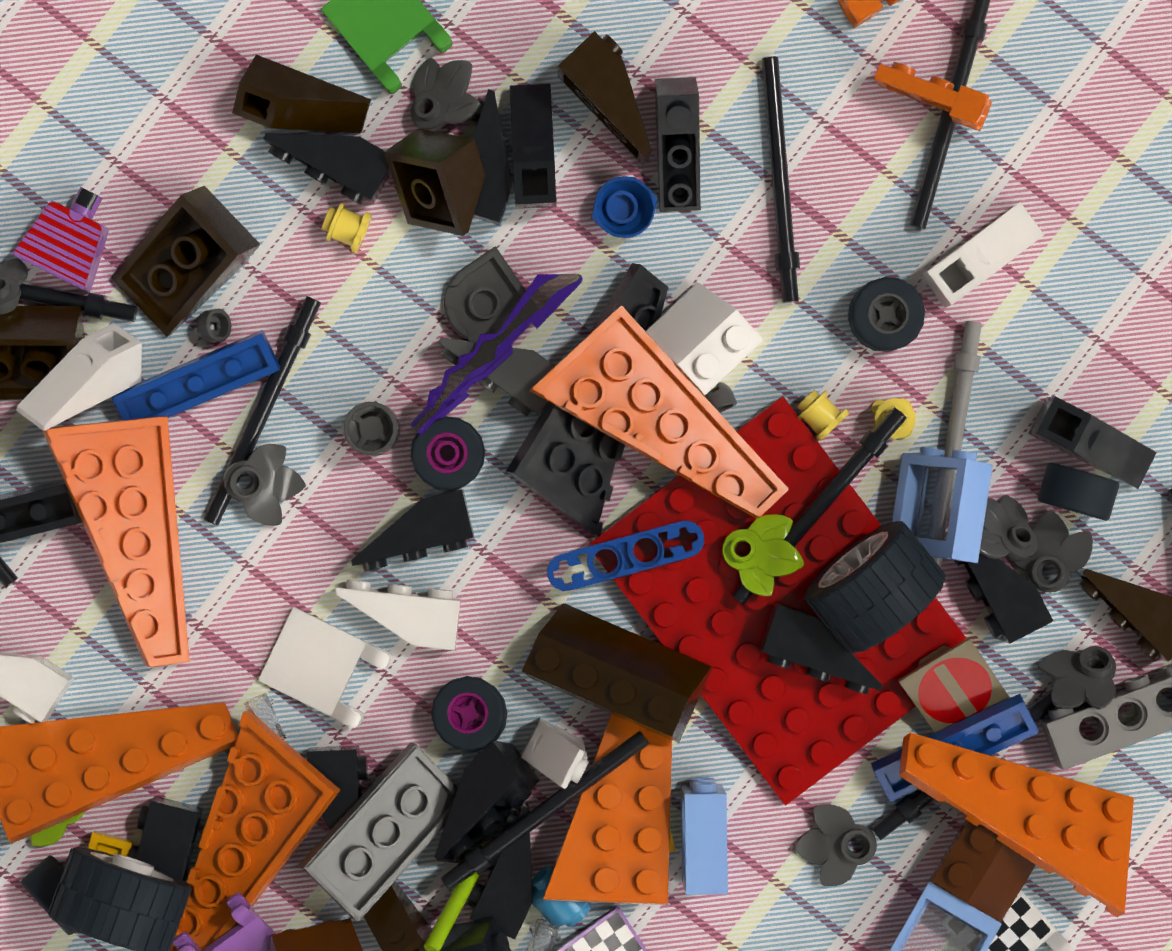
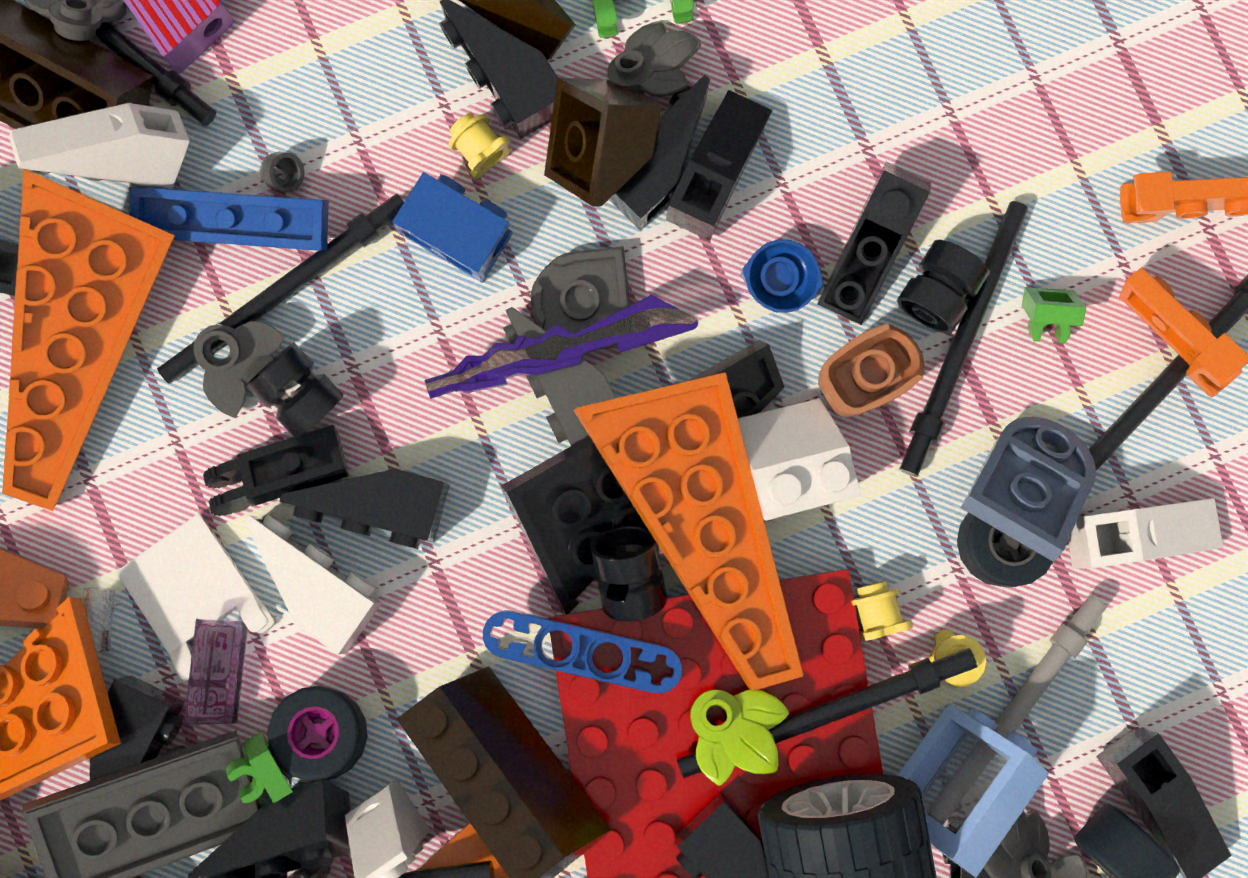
camera: 25 degrees right, 5 degrees down
(185, 259) = (292, 86): dark brown slope -> none
(330, 485) = (307, 403): none -> black wheel
(335, 545) = (276, 470): none -> black hinge
(363, 298) = (453, 225): none -> blue brick
(371, 428) = (384, 365): dark grey wheel -> none
(372, 710) = (216, 672): none -> clear purple tile
(447, 756) = (262, 768): none -> bright green tile
(448, 453) = (462, 450): black wheel -> none
(602, 84) = (827, 128): dark brown slope -> none
(628, 482) = (629, 573): none -> black wheel
(722, 398) = (780, 536): dark grey hinge -> none
(725, 243) = (871, 371): none -> nougat piece
(744, 153) = (947, 280): none -> black wheel
(832, 125) = (1052, 307): none -> bright green tile
(880, 269) = (1032, 489): none -> sand blue plate

